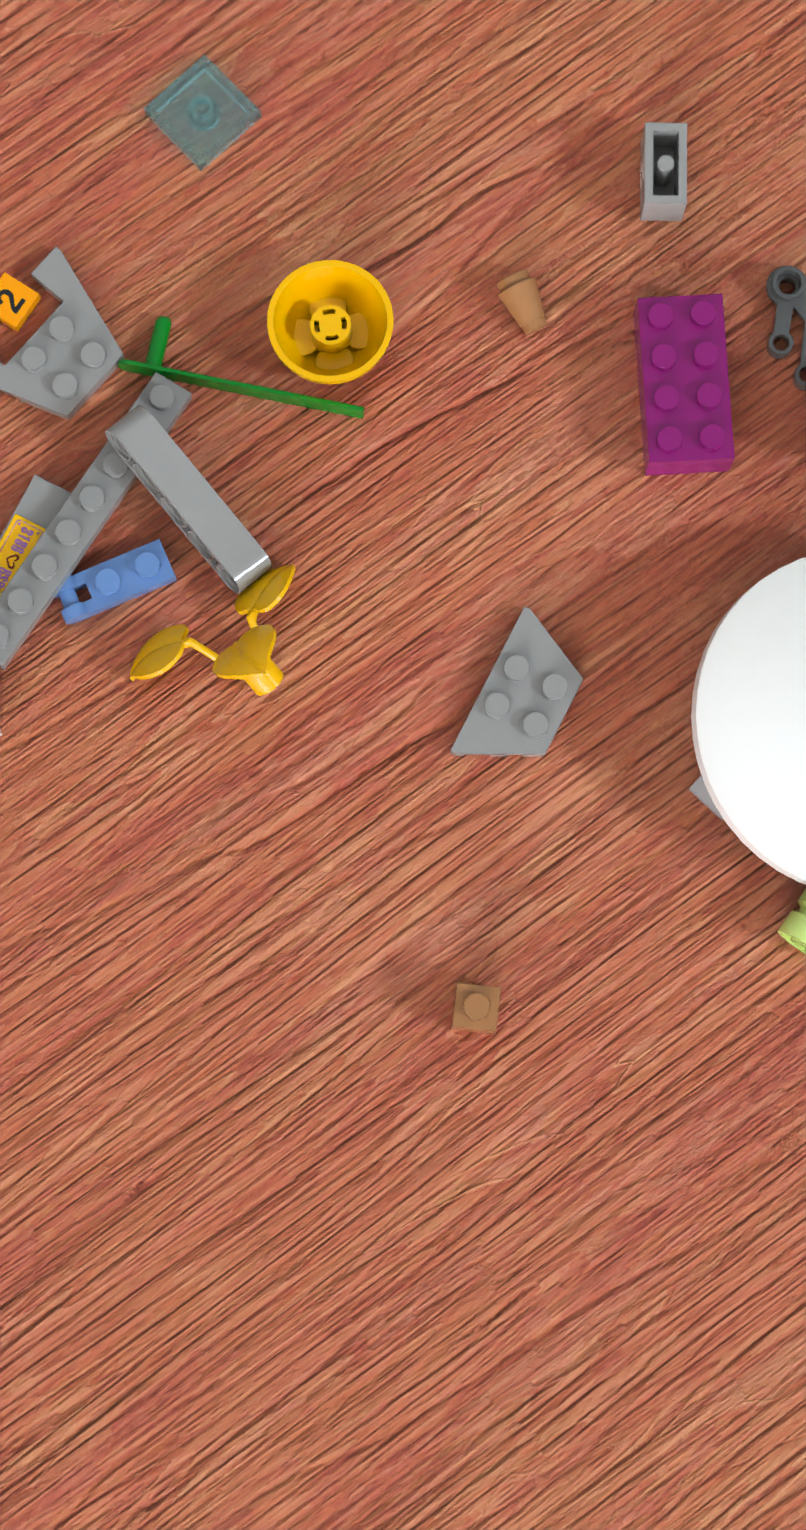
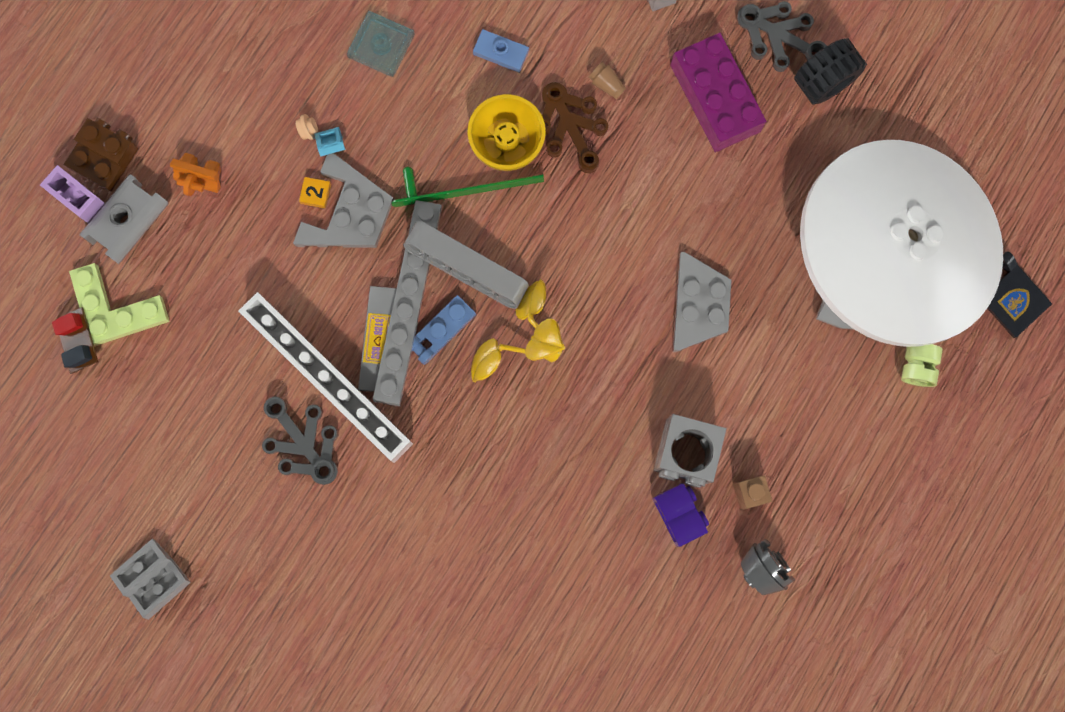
camera: 25 degrees left, 0 degrees up
(38, 198) = (306, 127): none -> light nougat plate
(63, 233) = (329, 141): none -> medium azure tile
(355, 999) = (680, 514): none -> dark purple brick
(380, 193) = (501, 51): none -> medium blue plate
(398, 868) = (711, 440): none -> light grey brick
(438, 342) = (569, 123): none -> reddish brown plant
(445, 1128) = (766, 569): none -> dark grey cone

